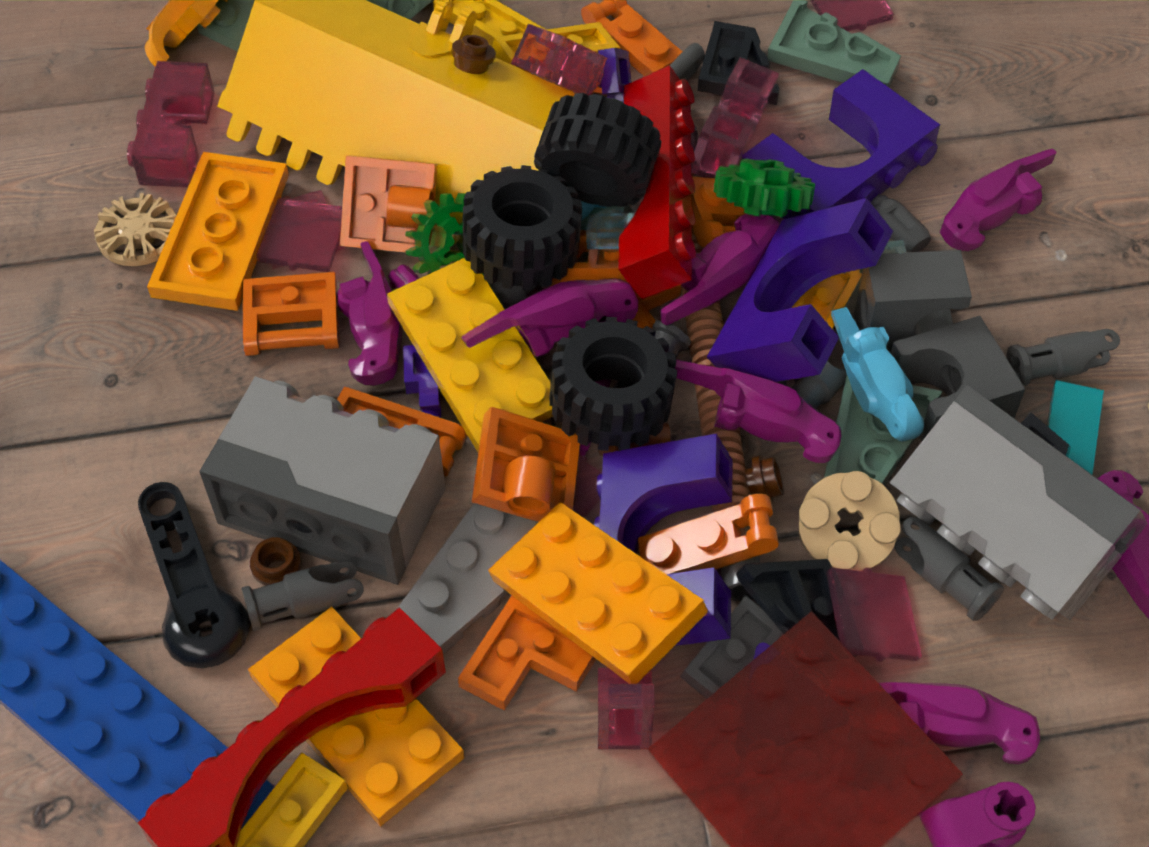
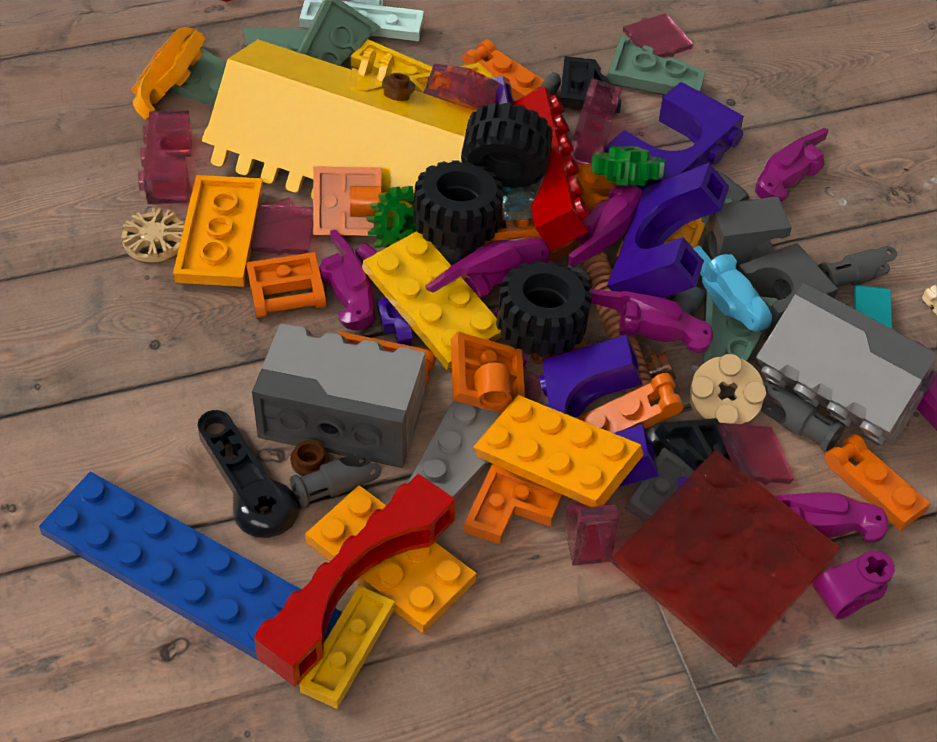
camera: 10 degrees left, 5 degrees down
(1037, 673) = (876, 481): none -> orange plate

